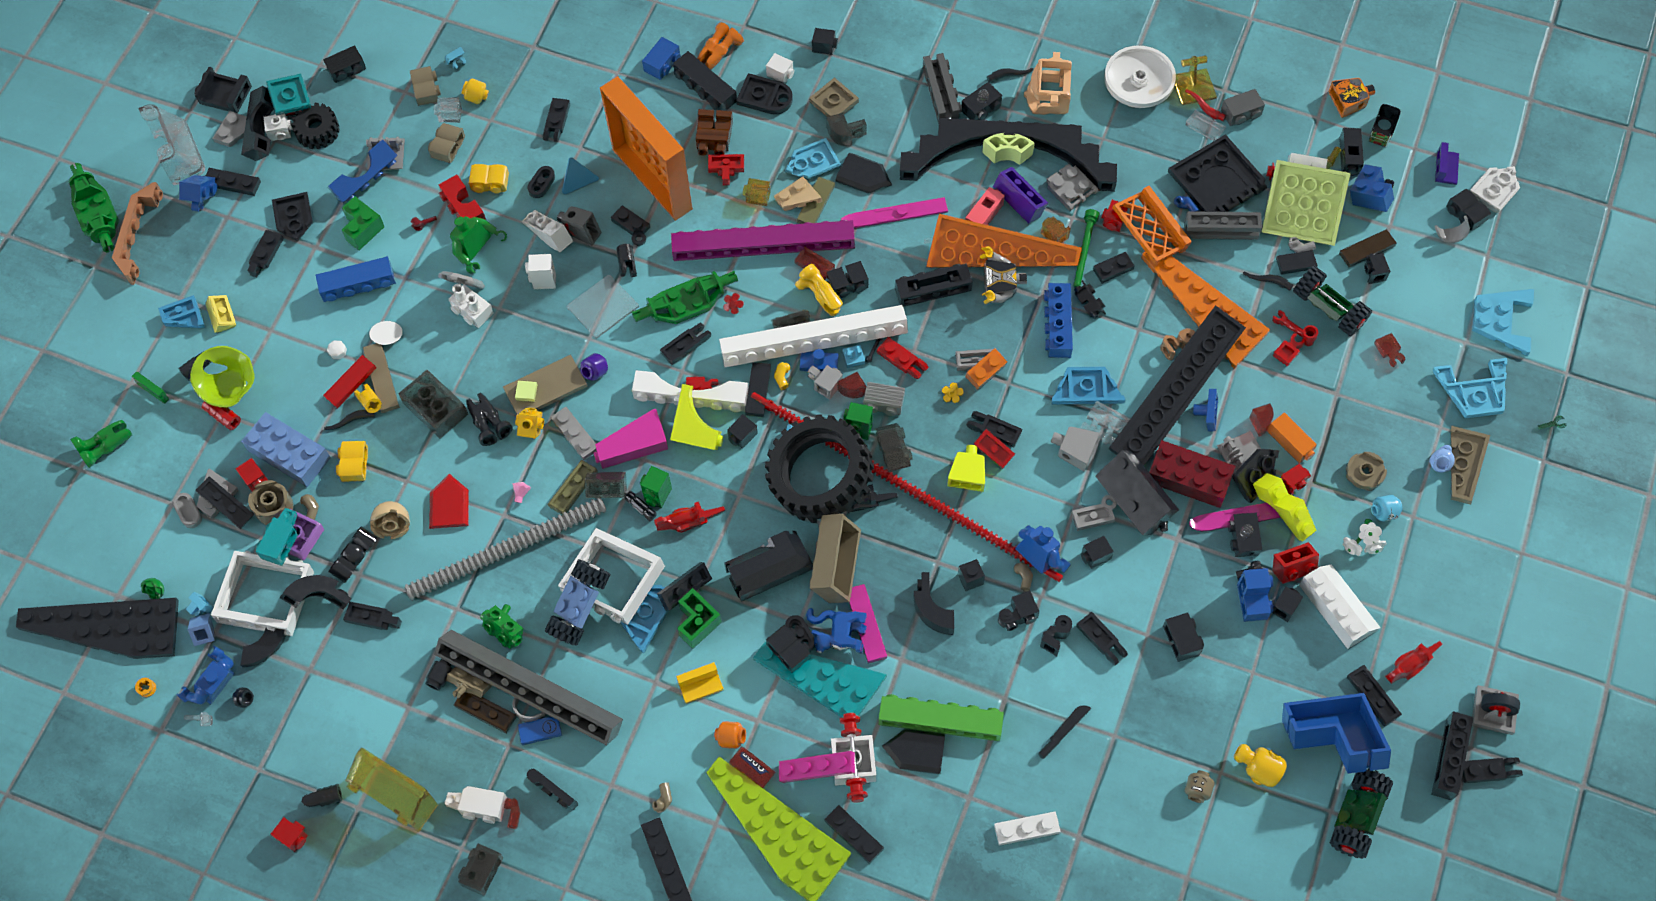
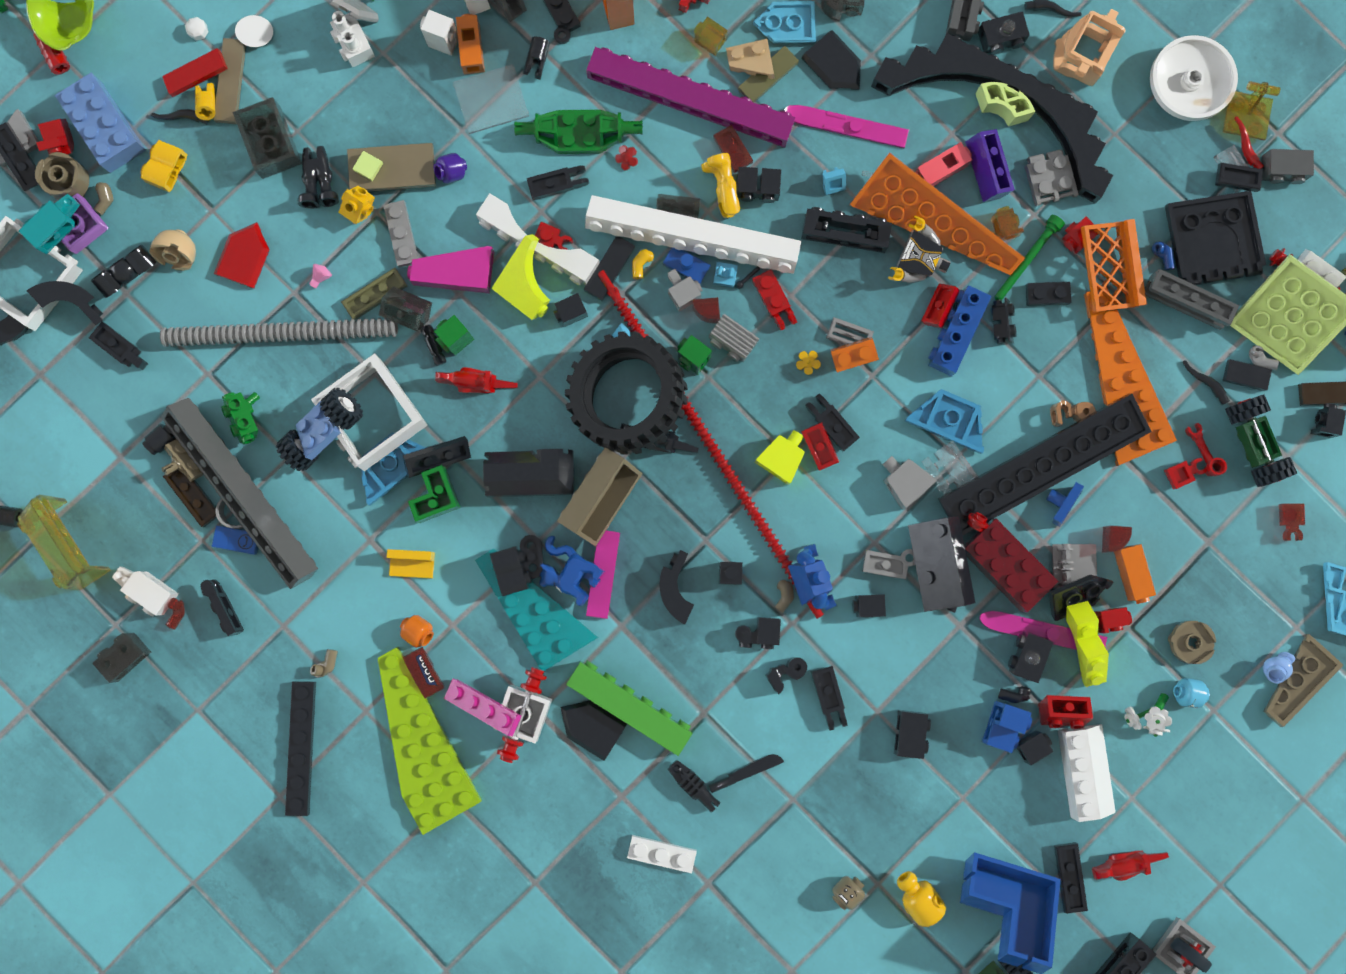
camera: 20 degrees right, 20 degrees up
(569, 272) = (470, 44): none -> orange brick
(854, 834) = (492, 783): black plate -> none
(893, 447) = (717, 397): clear smoke brick -> none
(906, 254) = (834, 181): none -> medium azure tile
(1024, 758) = (693, 785): none -> black hinge
(1035, 308) = (940, 305): none -> red plate
(1148, 449) = (977, 521): none -> red plate
(1211, 129) = (1239, 177): none -> black tile

